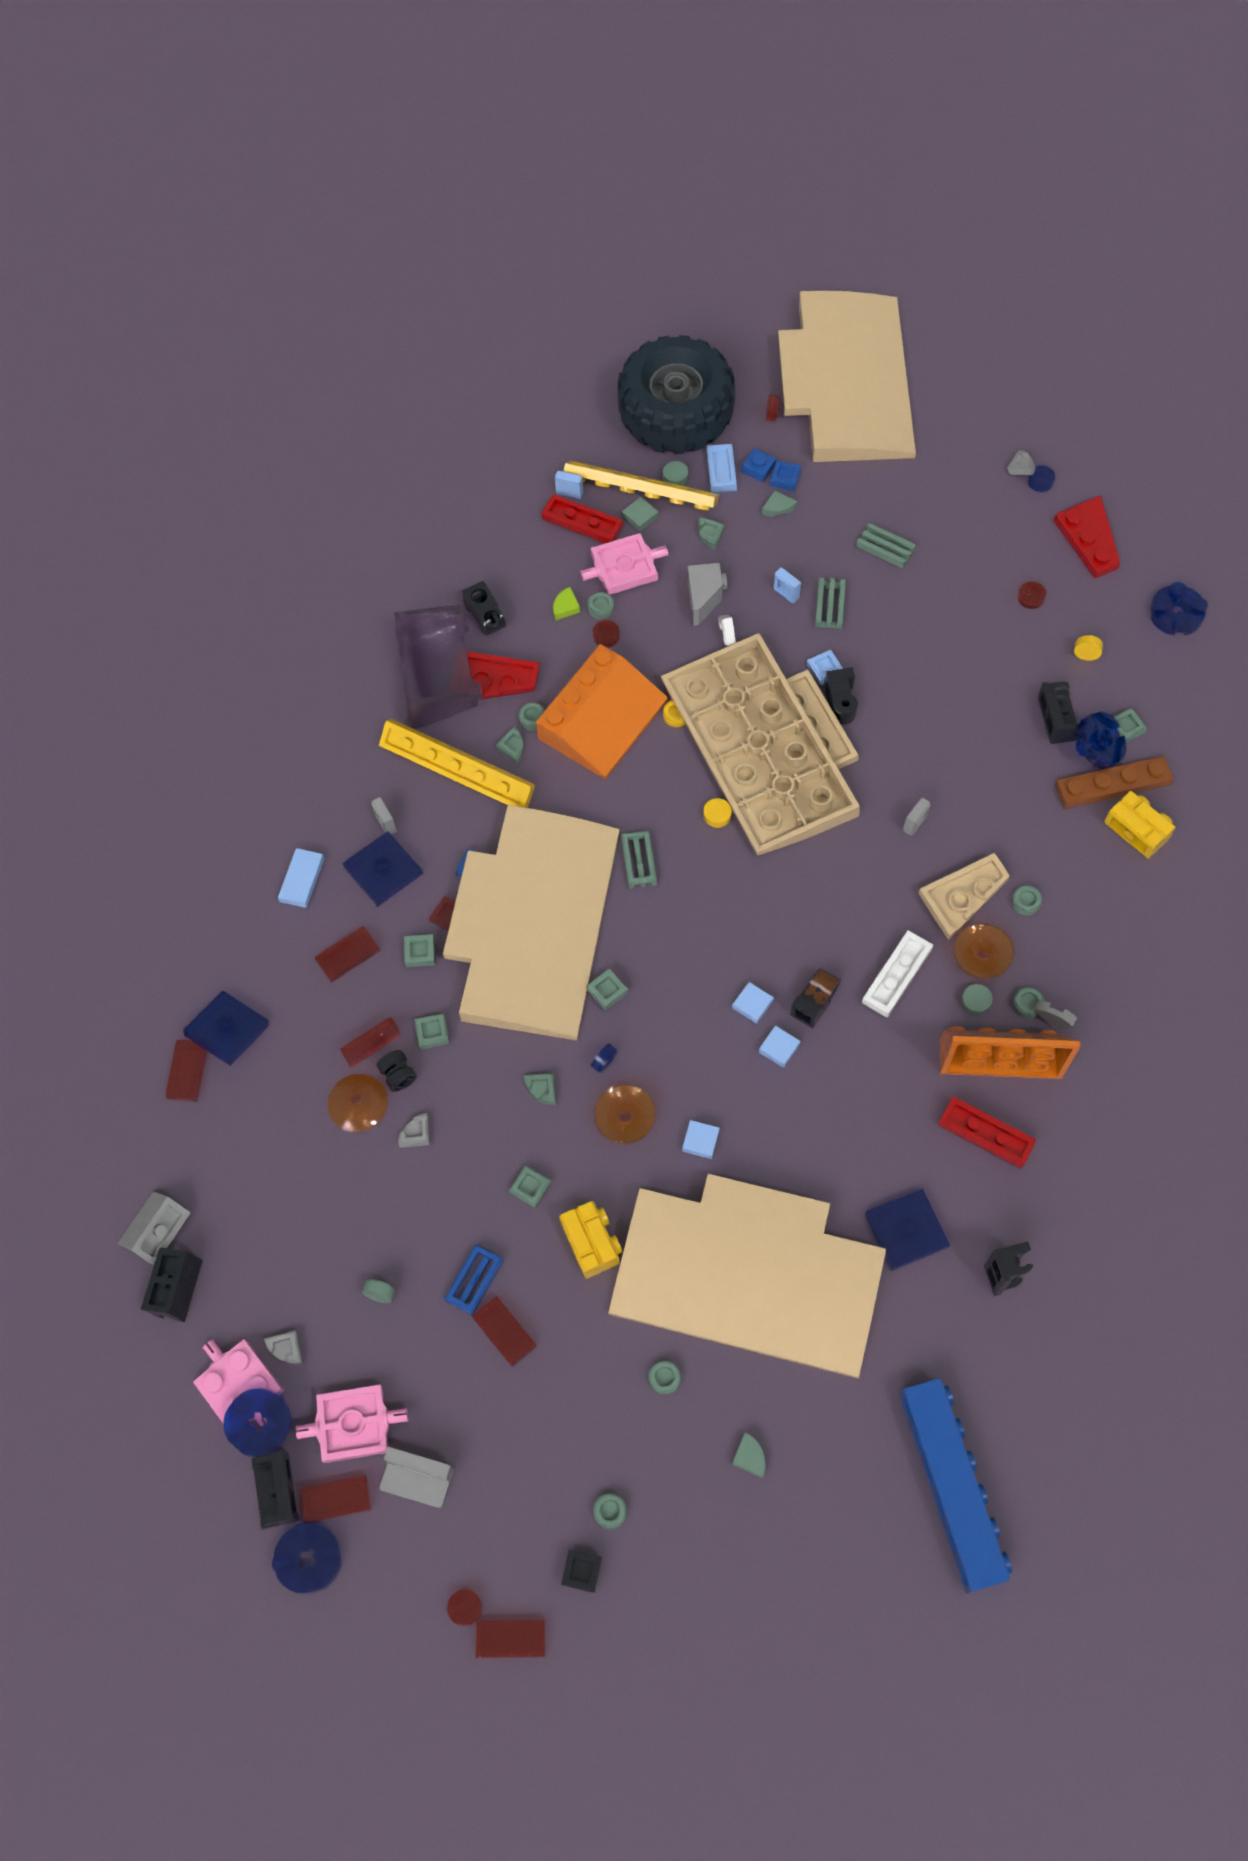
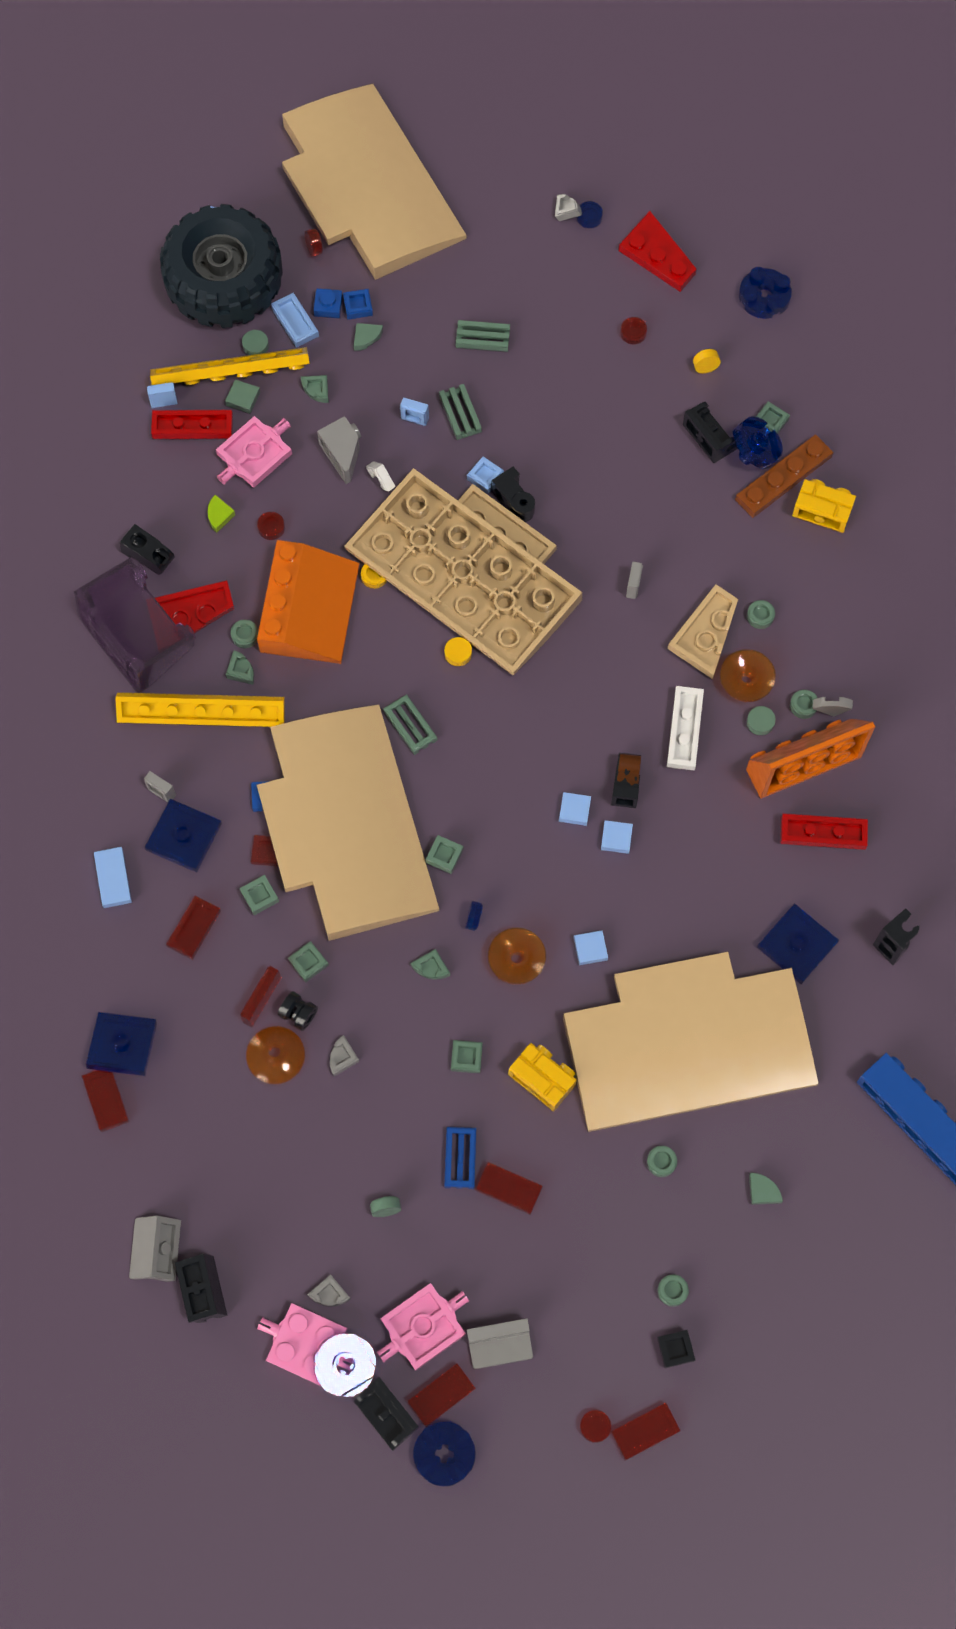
camera: 30 degrees left, 5 degrees up
(600, 605) = (252, 501): sand green tile -> none

